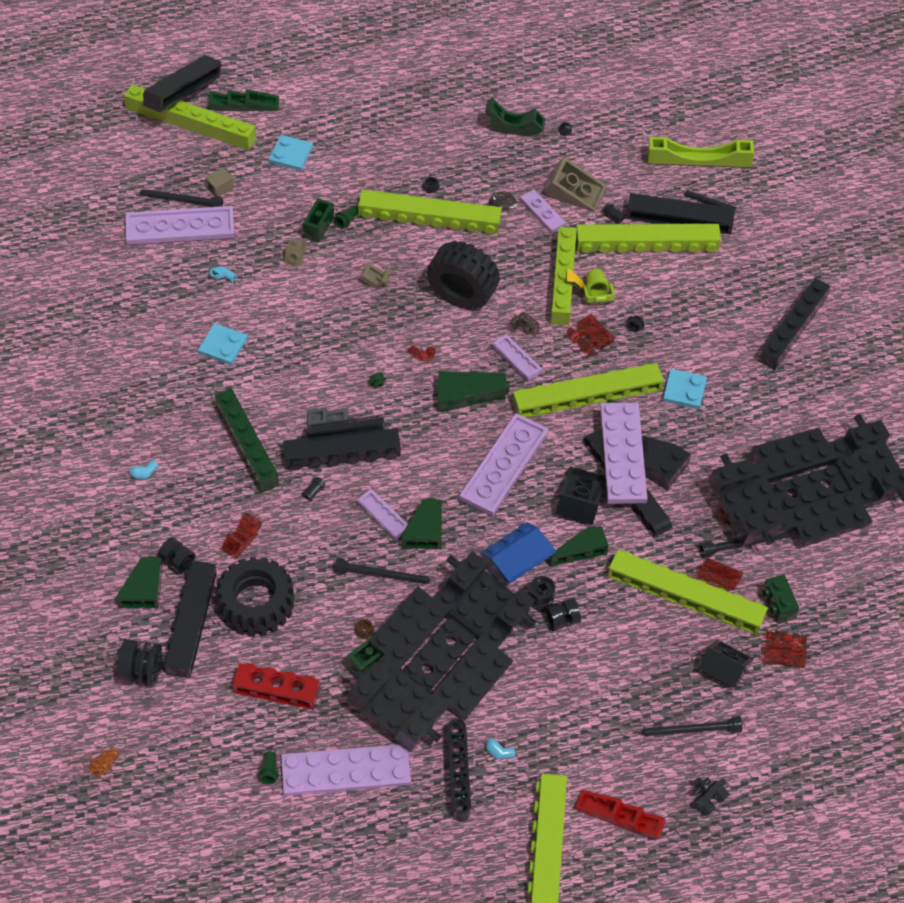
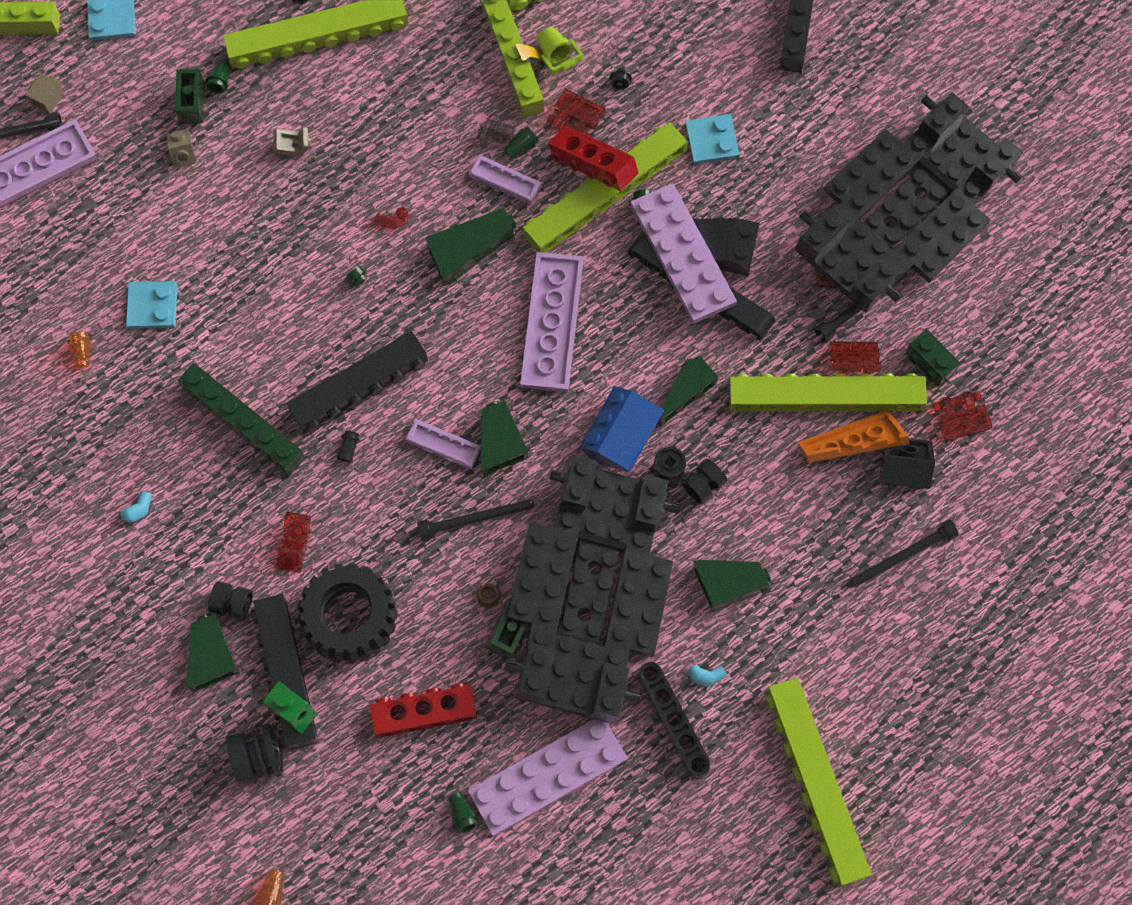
camera: 20 degrees left, 15 degrees up
(158, 351) = (80, 348): none -> clear orange cone
(178, 631) = (289, 706): none -> green torso
(222, 272) = (106, 211): medium azure arm -> none
(323, 415) = (322, 350): dark grey slope -> none
(346, 426) = (350, 353): black fence -> none
(463, 275) = (399, 103): black tyre -> none
(541, 338) = (522, 142): none -> dark green cone
(550, 691) = (730, 581): none -> dark green slope
(581, 495) = (657, 323): black slope -> none
(587, 364) = (593, 158): none -> red brick
(619, 814) = (871, 692): red slope -> none
(695, 630) = (856, 437): none -> orange wing
(716, 790) = (953, 625): black hips -> none

